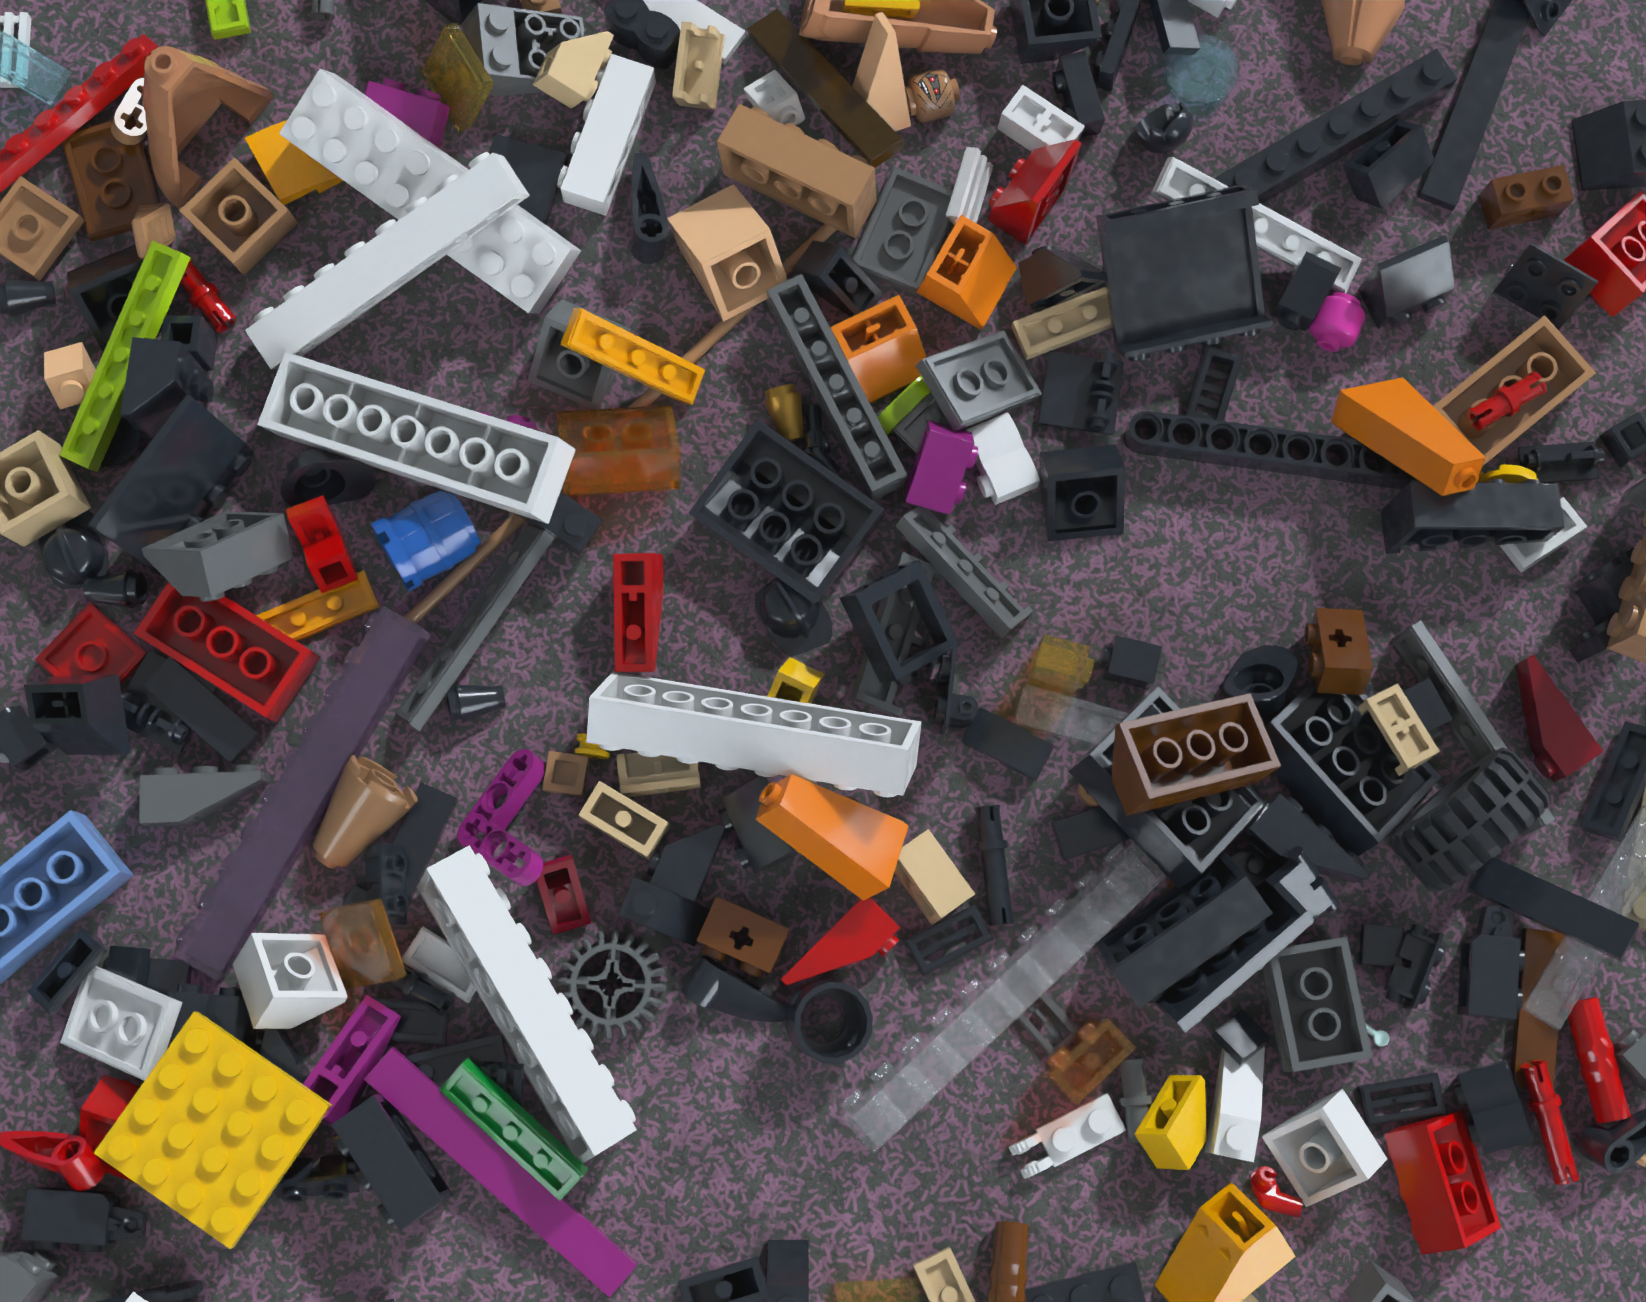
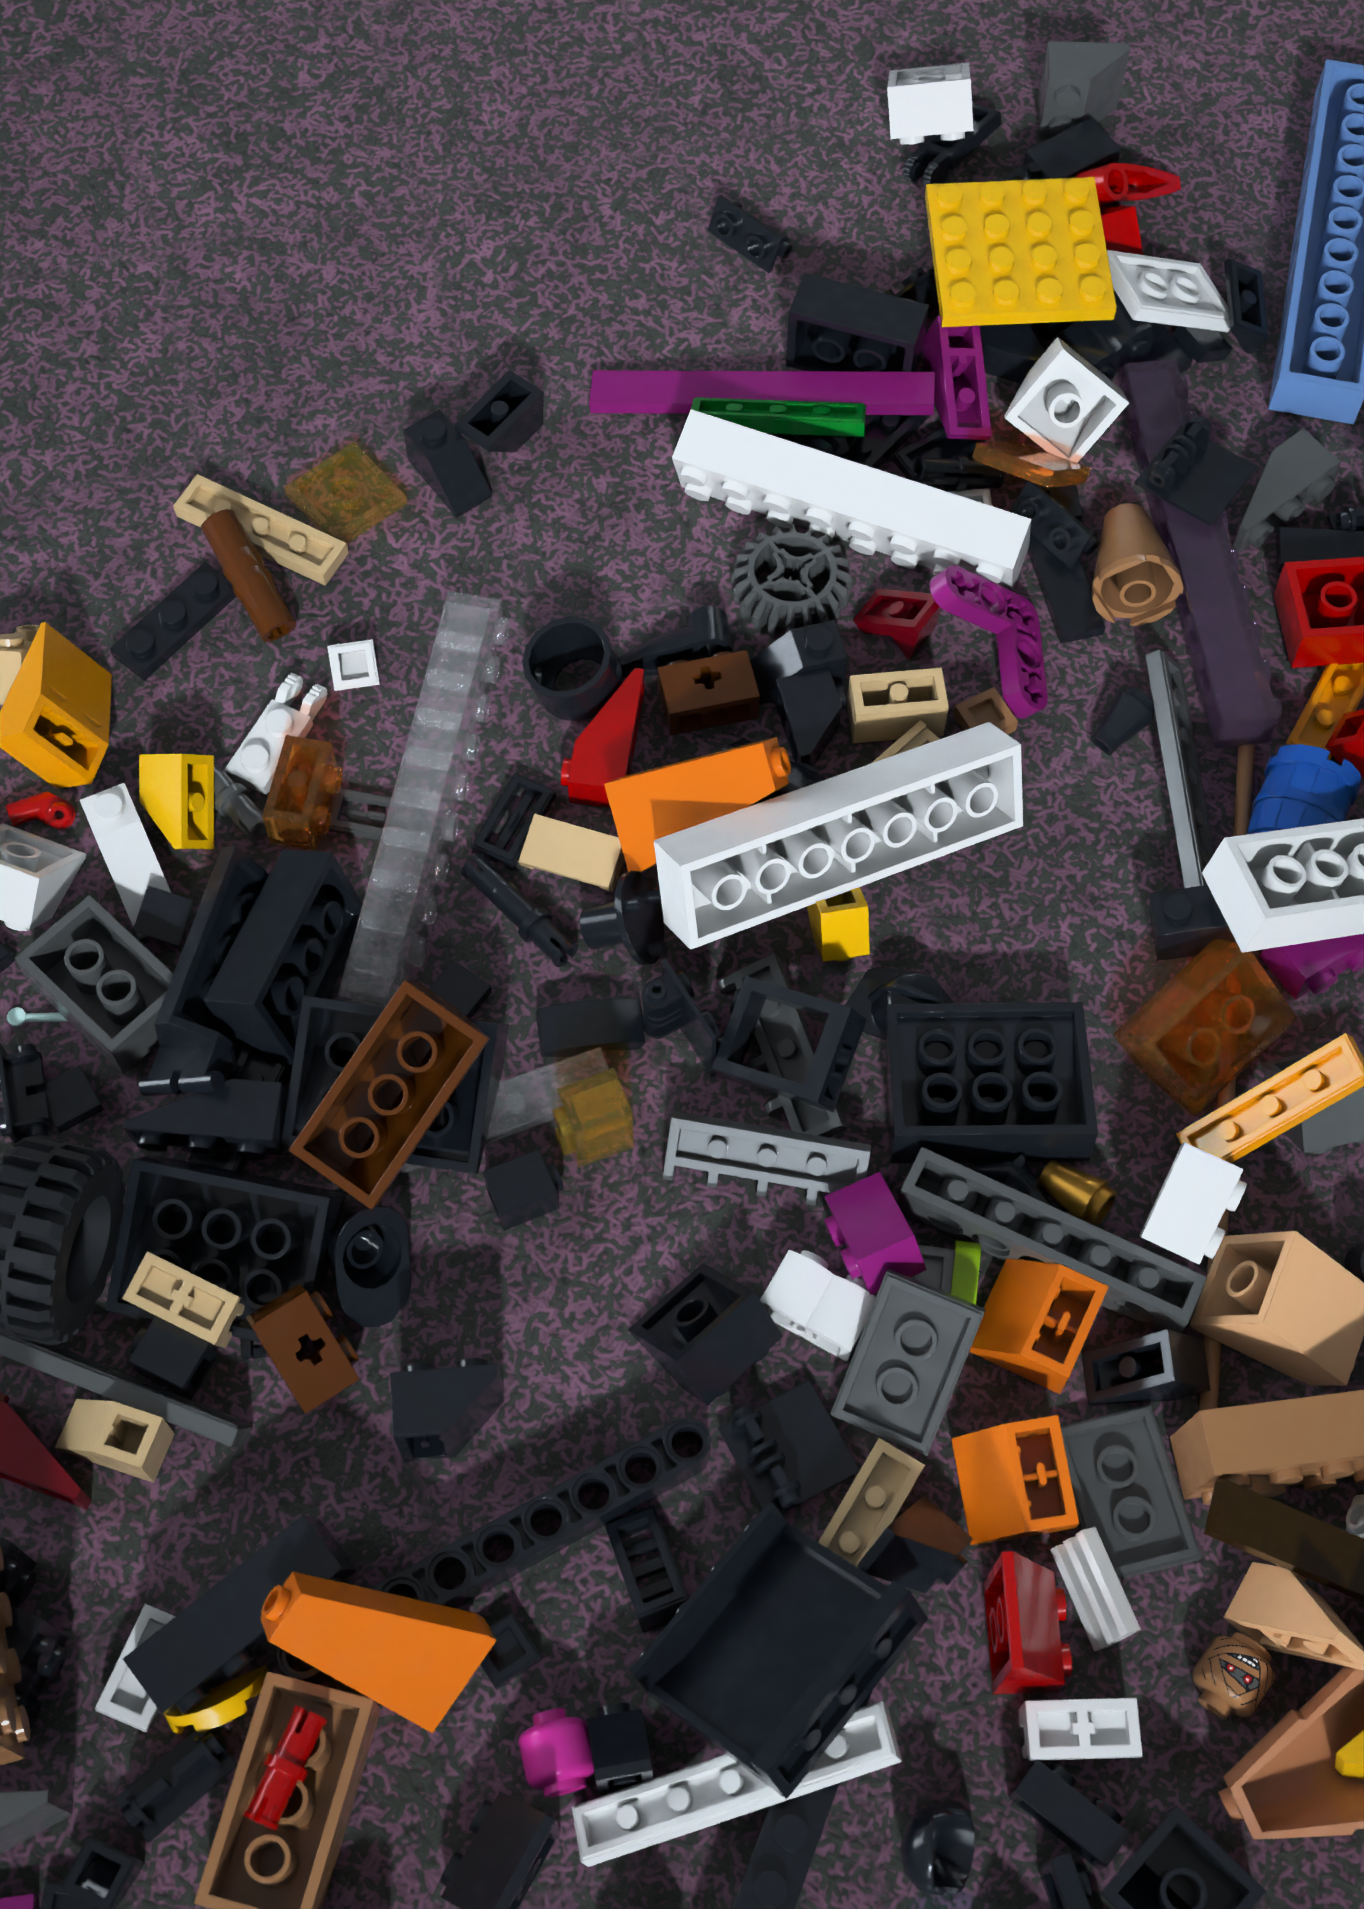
camera: 150 degrees right, 15 degrees down
(260, 835) = (1196, 472): none -> black hinge
(637, 610) = (1053, 893): red slope -> none
(736, 338) = (1193, 1204): none -> white brick
(932, 793) = (629, 920): none -> black piece
(973, 1159) = (353, 665): none -> white slope
(1279, 551) = (442, 1407): none -> black slope
(1321, 400) = (511, 1653): none -> black tile
(1489, 681) = (116, 1437): none -> tan slope

